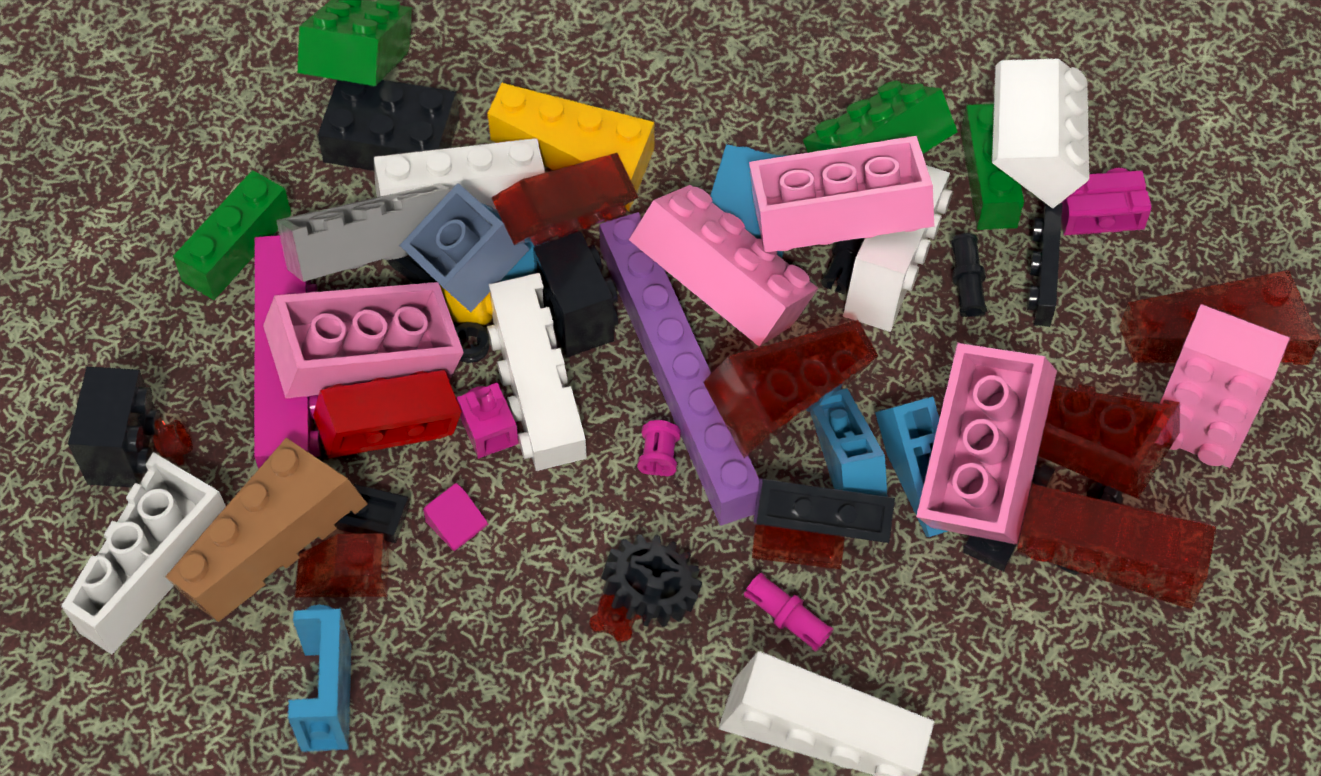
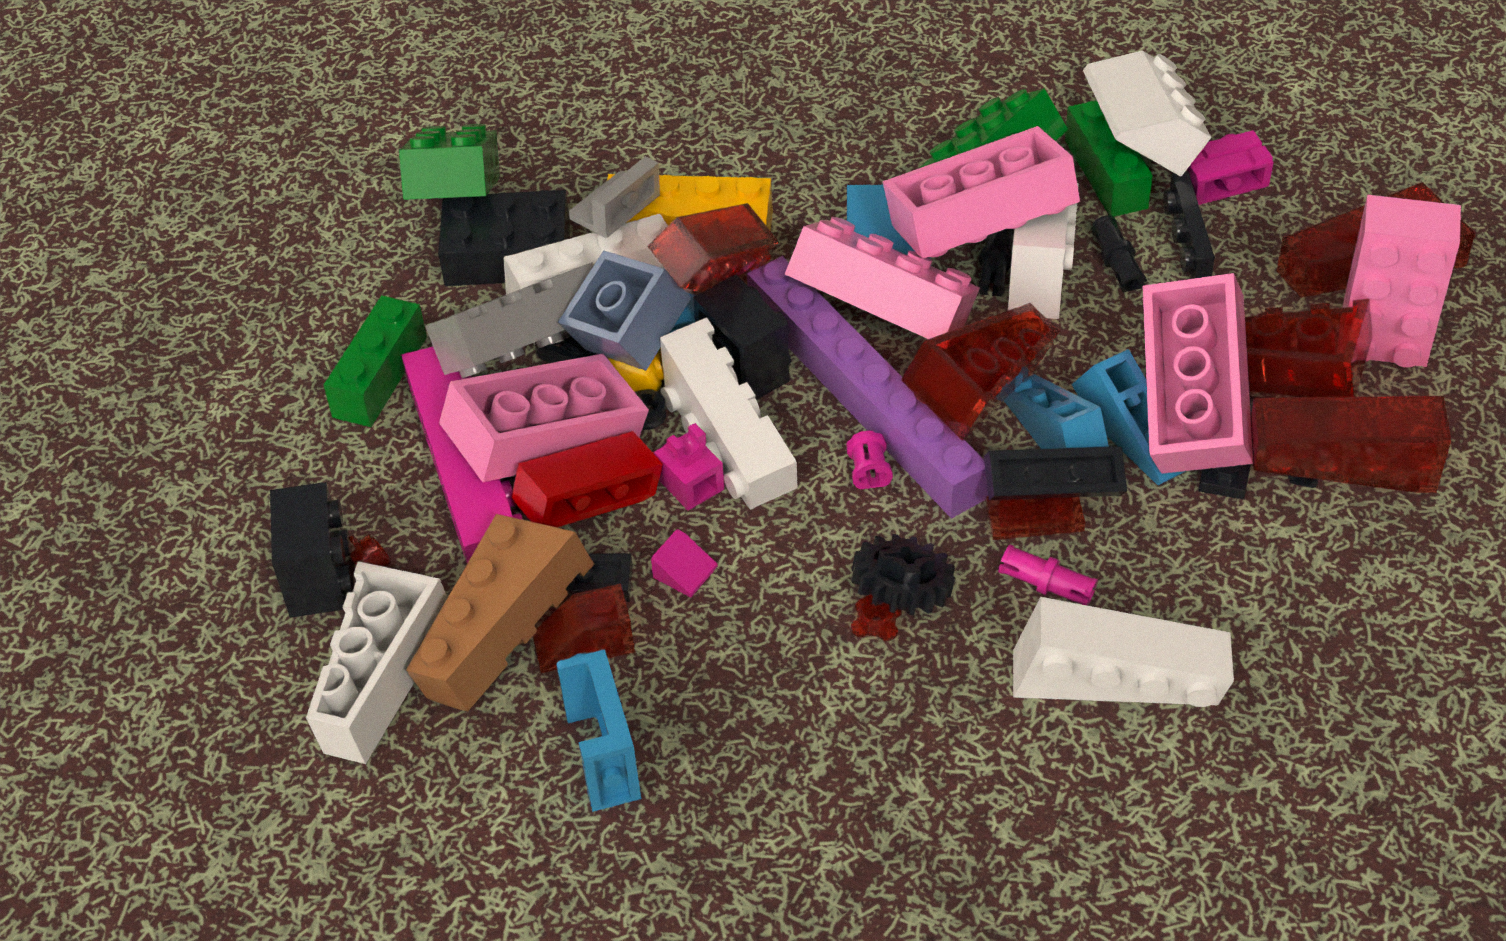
camera: 10 degrees left, 10 degrees down
(496, 118) = (618, 198): none -> light grey panel

